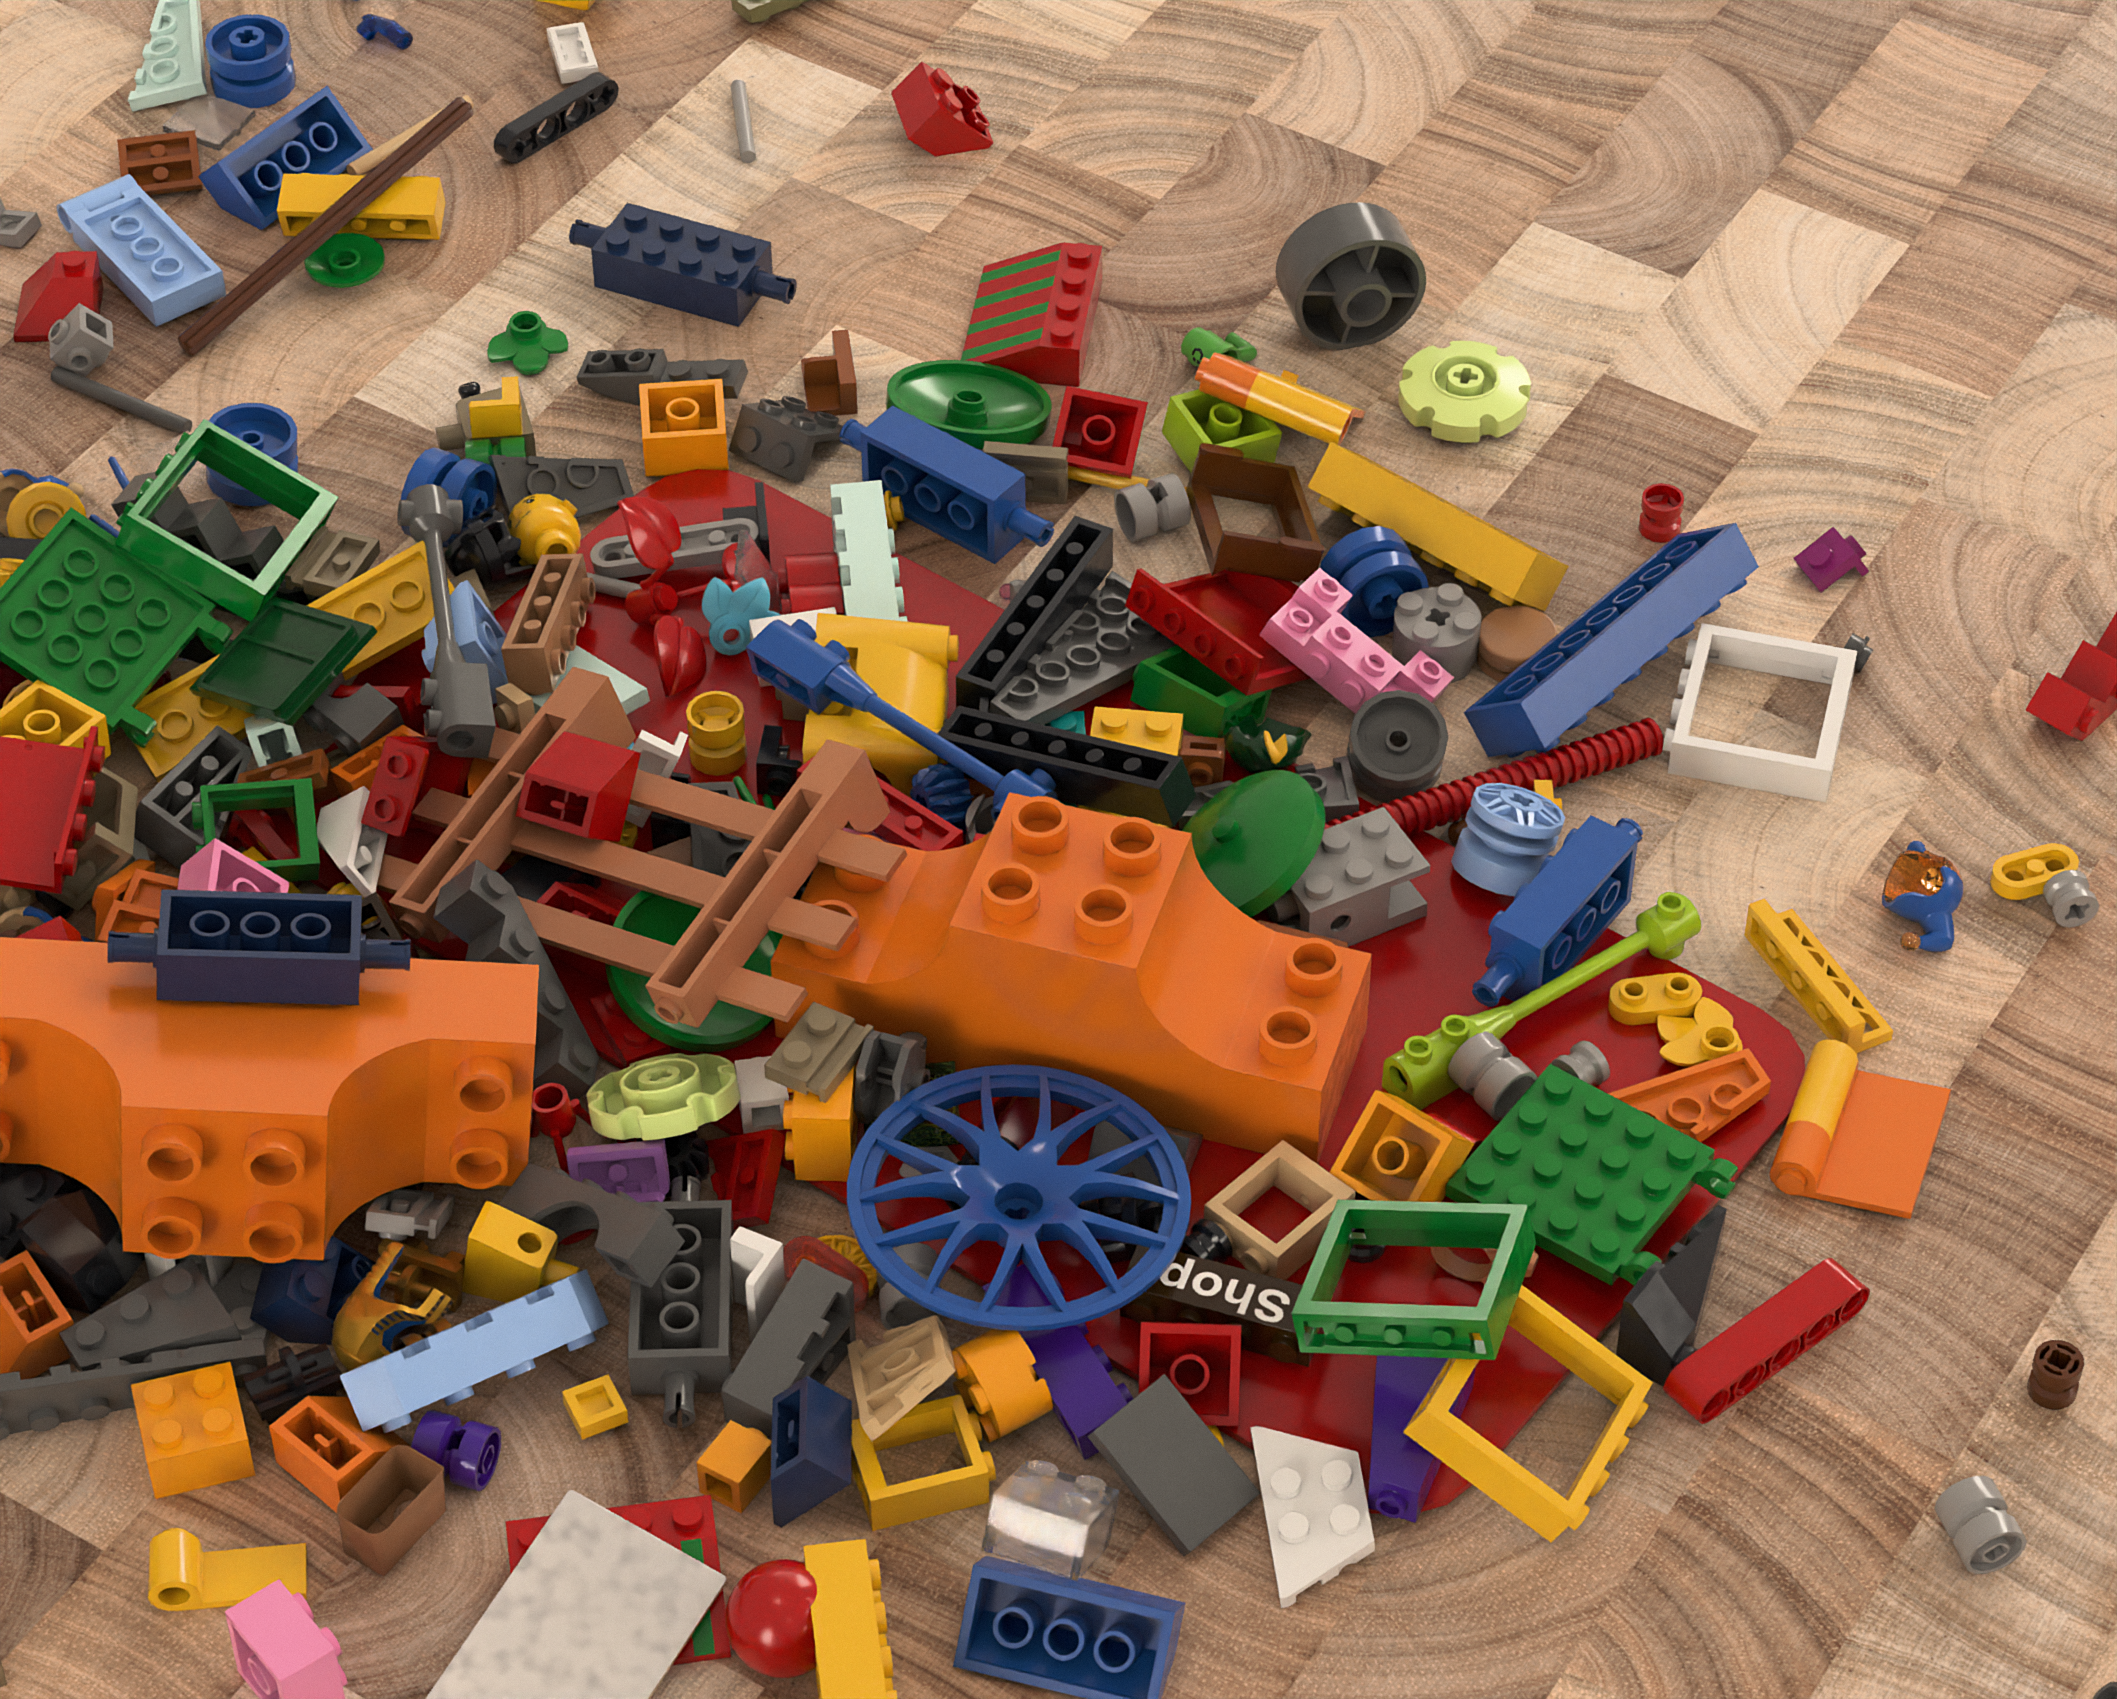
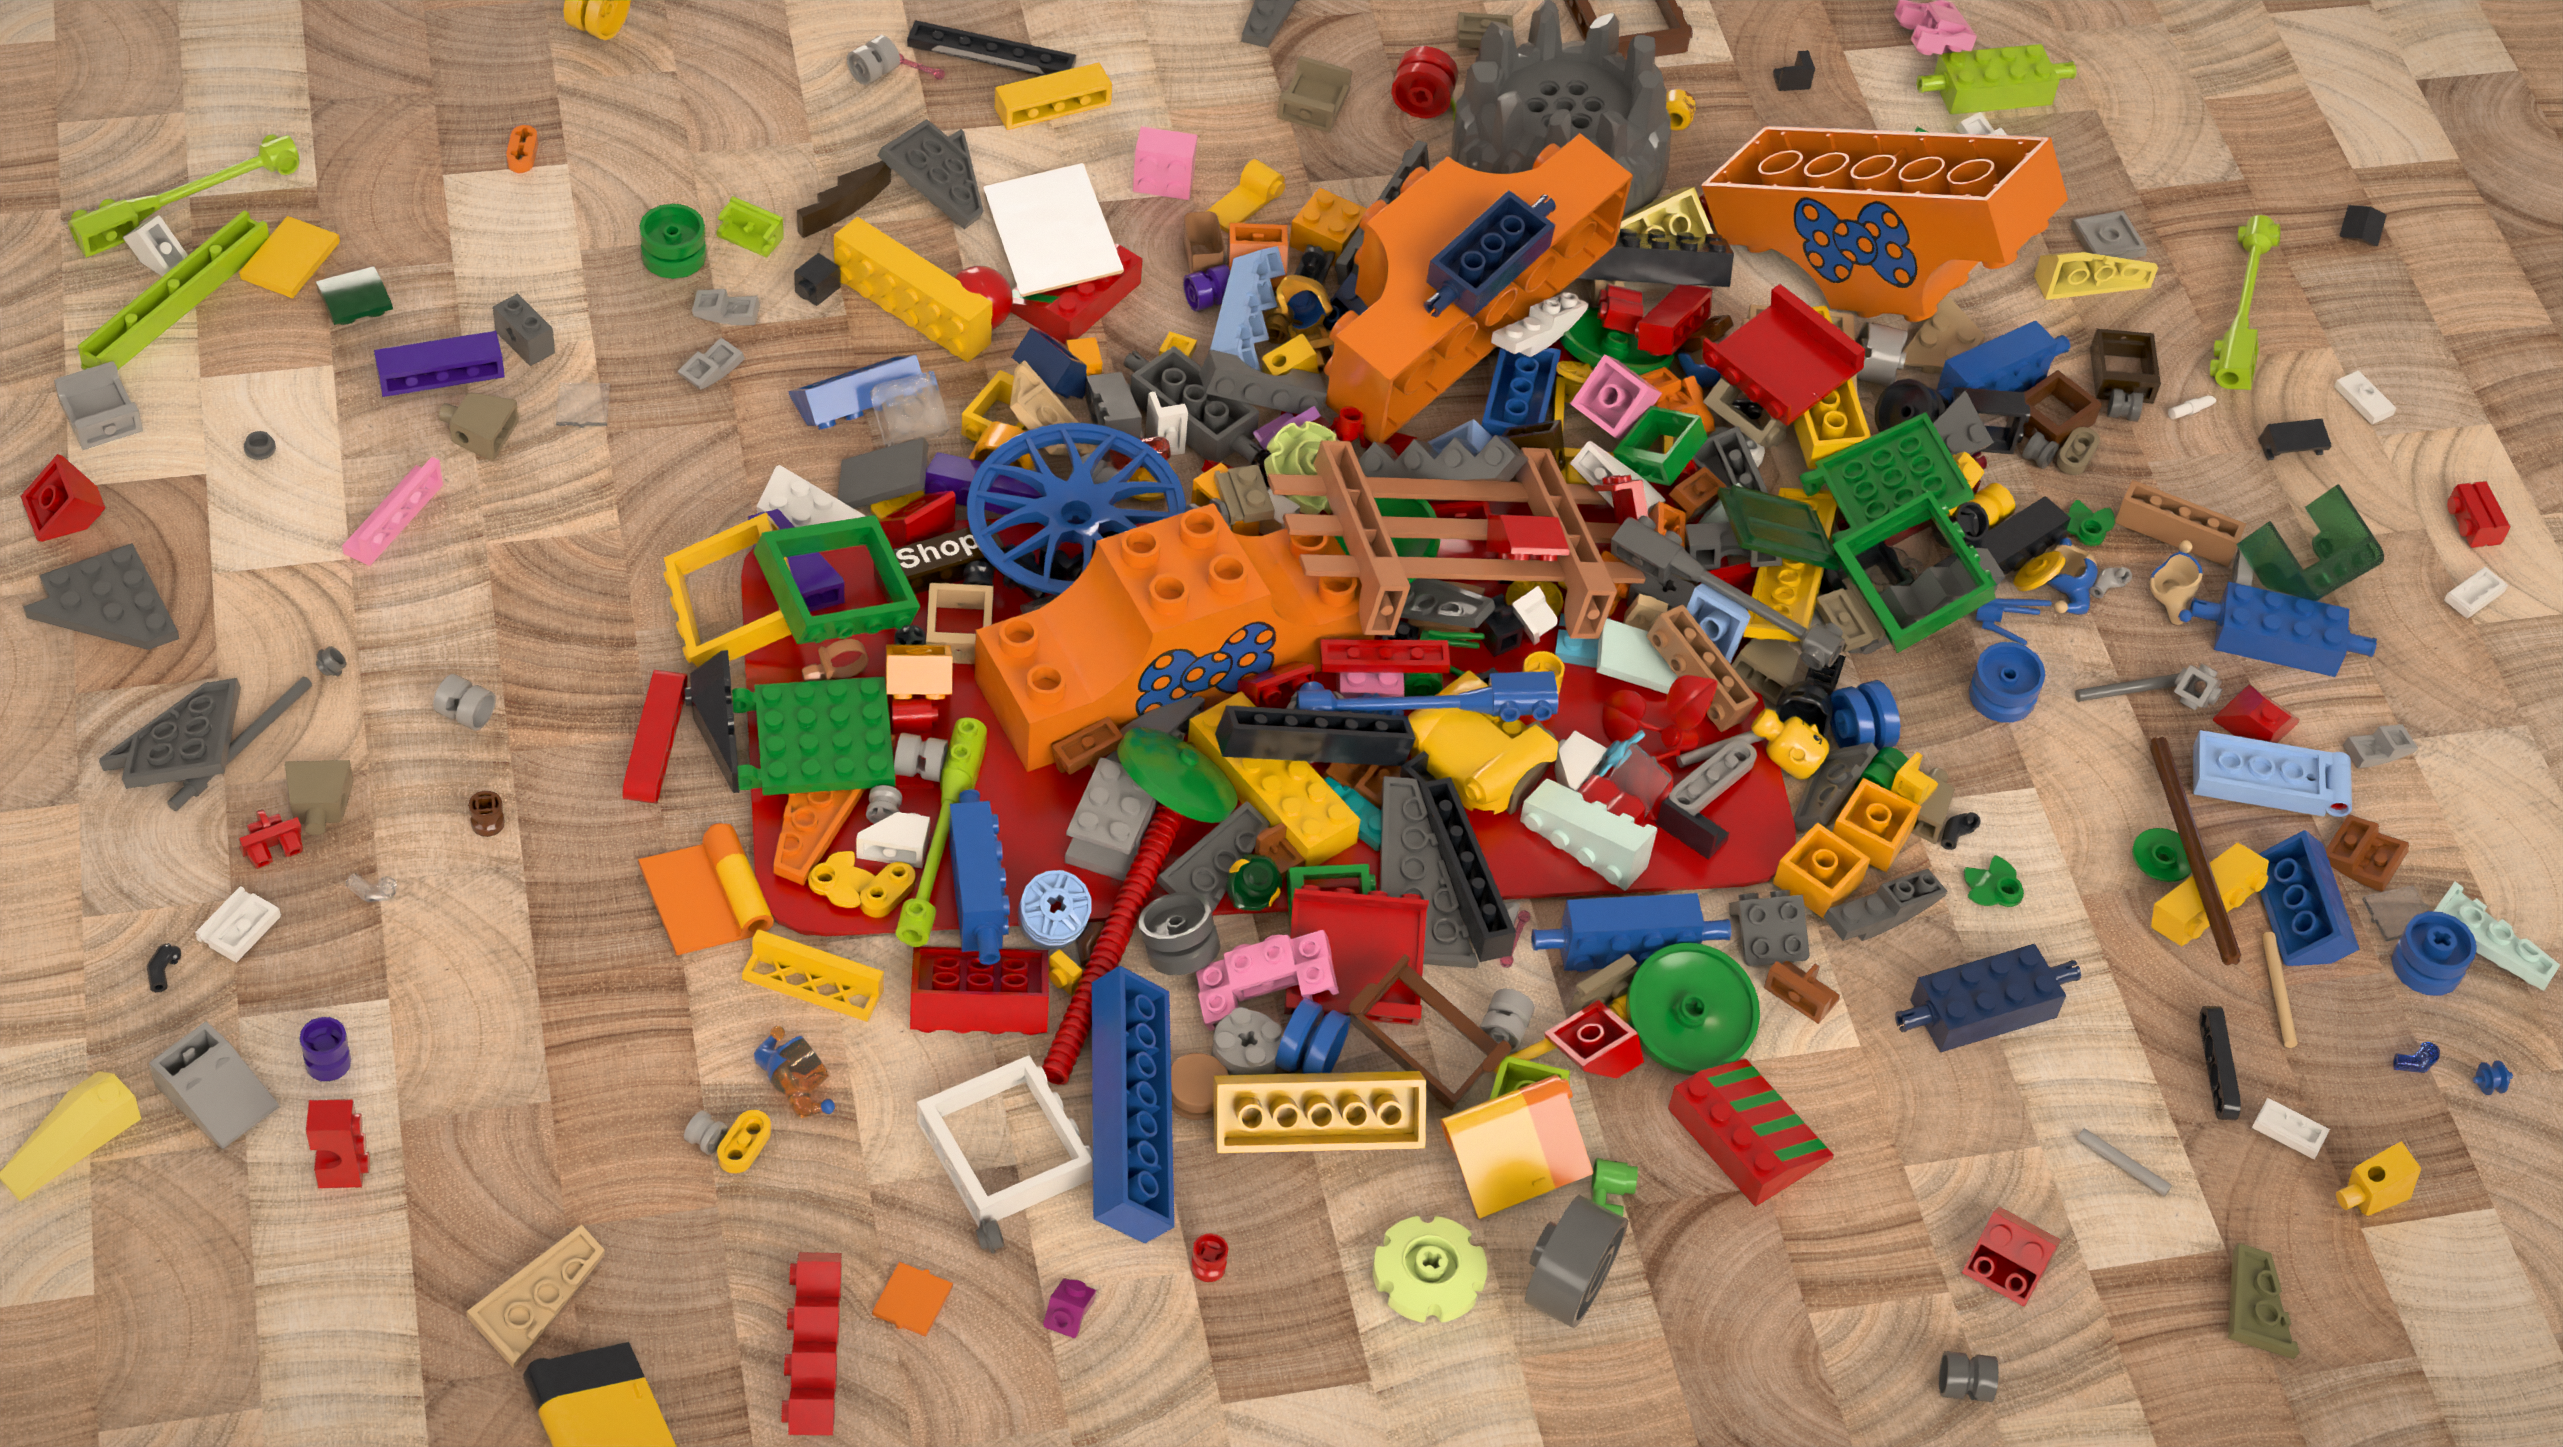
camera: 130 degrees right, 5 degrees up
(575, 421) = (1877, 823): none -> light orange brick
(1100, 70) = (1964, 1376): none -> dark grey wheel
(1604, 1019) = (896, 839): none -> white slope
(1681, 845) = (964, 995): none -> red slope
(1976, 663) = (912, 1299): none -> orange piece

